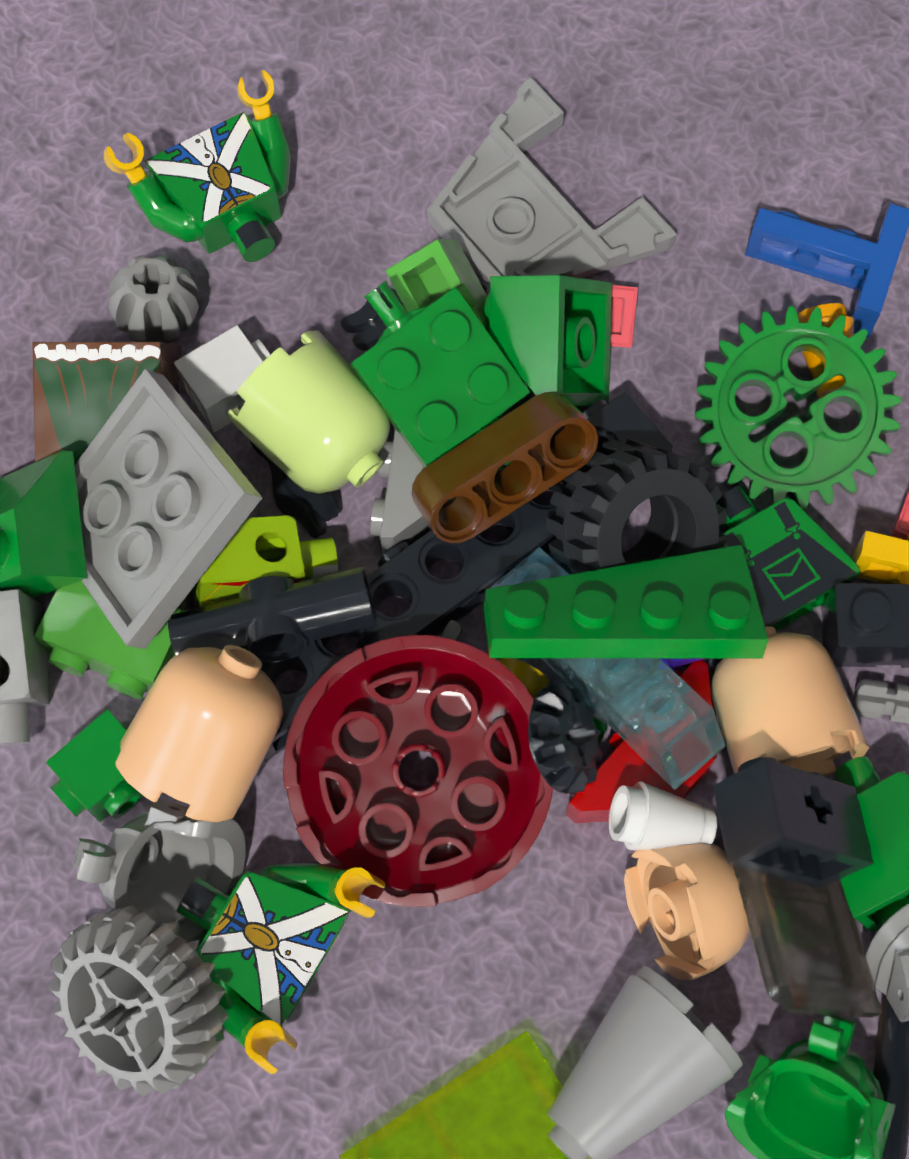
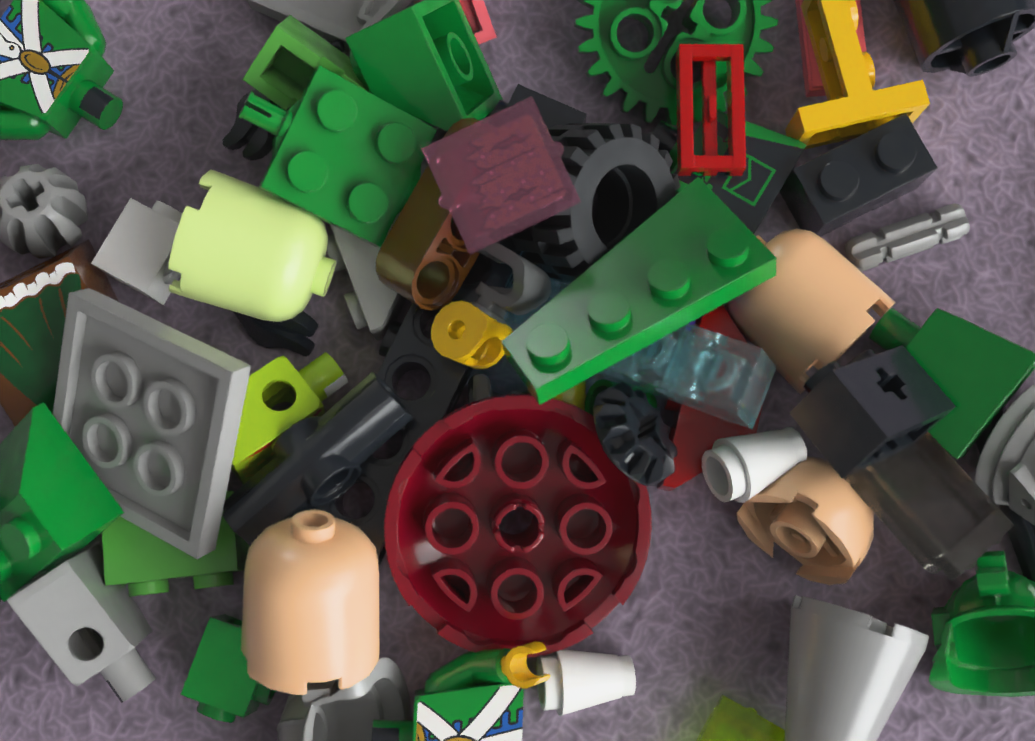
camera: 25 degrees left, 10 degrees up
(404, 946) = (583, 679): none -> white cone
(464, 572) = (475, 330): none -> leg
(560, 450) = (501, 175): none -> clear pink piece
(762, 540) = (710, 162): none -> red tile

